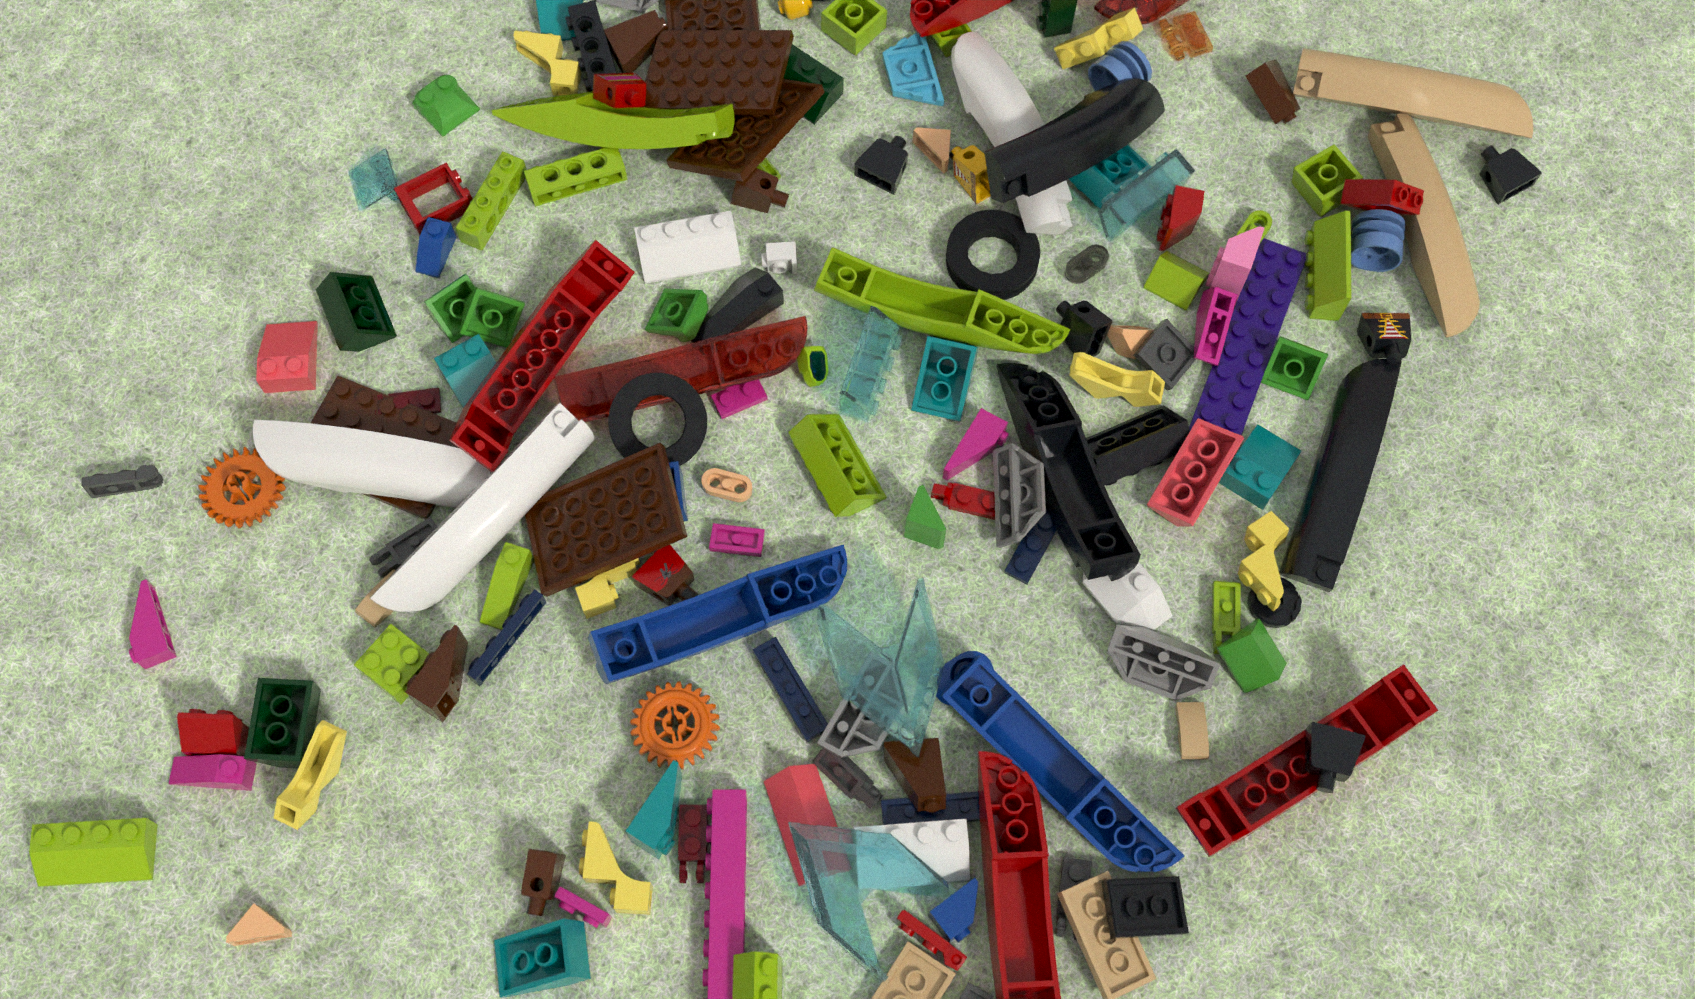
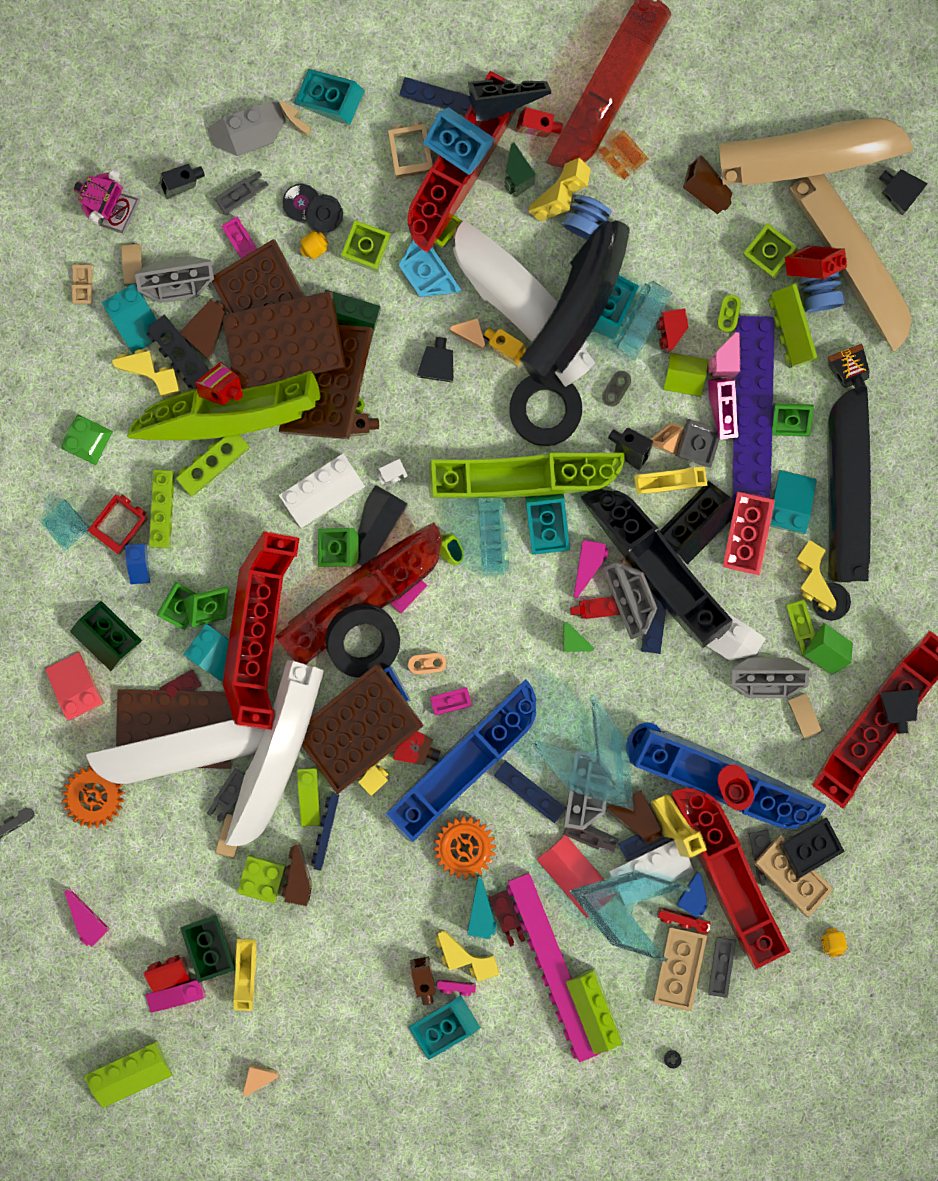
camera: 20 degrees left, 20 degrees up
(836, 464) = (497, 618): lime slope -> none
(967, 797) = (675, 826): none -> light yellow arch
(1068, 775) = (735, 787): none -> red piece

